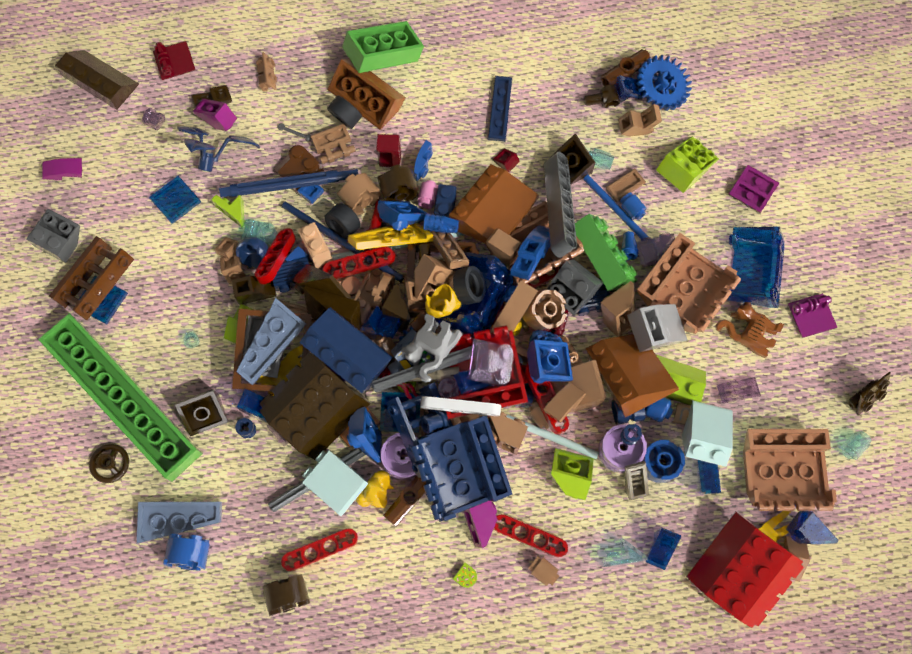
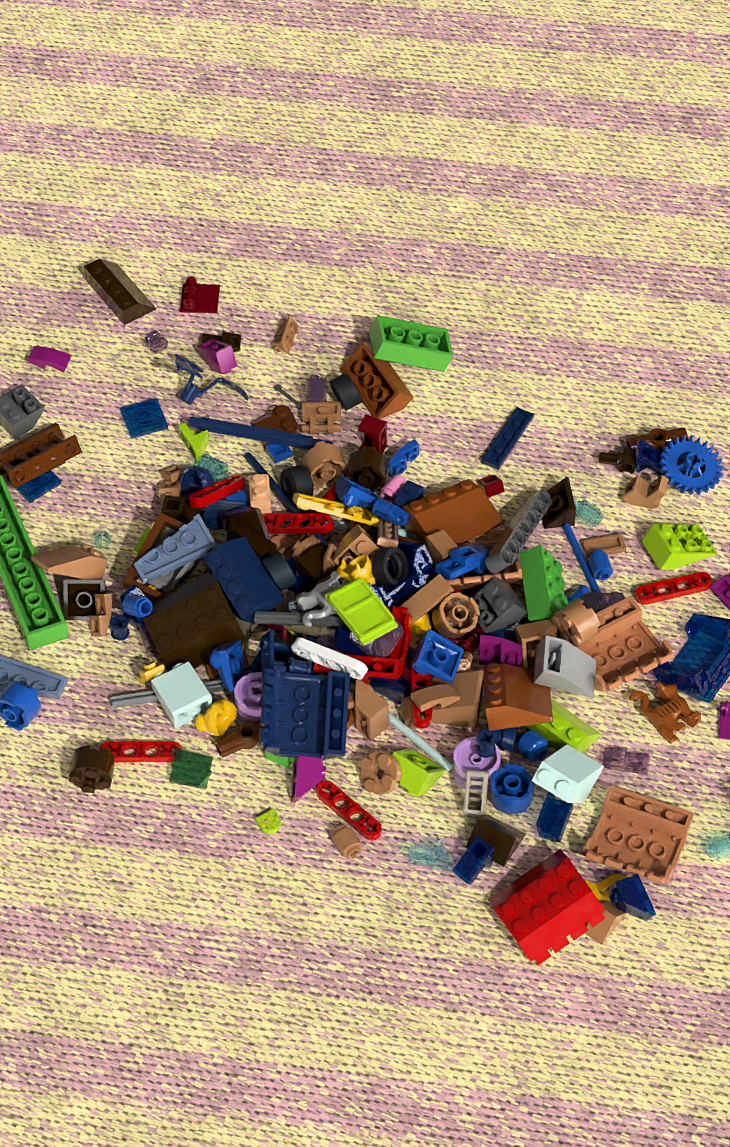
camera: 25 degrees right, 20 degrees down
(174, 383) = (73, 561): none -> medium nougat slope
(225, 428) = (100, 622): none -> medium nougat slope
(257, 412) = (137, 605): none -> blue brick
(295, 468) = (149, 671): none -> yellow slope
(318, 118) = (317, 389): none -> clear purple slope
(373, 550) = (191, 769): none -> clear green piece
(374, 329) = (279, 571): none -> black wheel
(472, 350) = (361, 610): none -> lime piece
(540, 499) = (370, 776): none -> medium nougat plate
(597, 328) = (499, 651): none -> magenta slope
(655, 282) = (576, 622): none -> medium nougat brick
(667, 511) = (499, 835): none -> dark brown slope
(700, 206) = (672, 586): none -> red beam

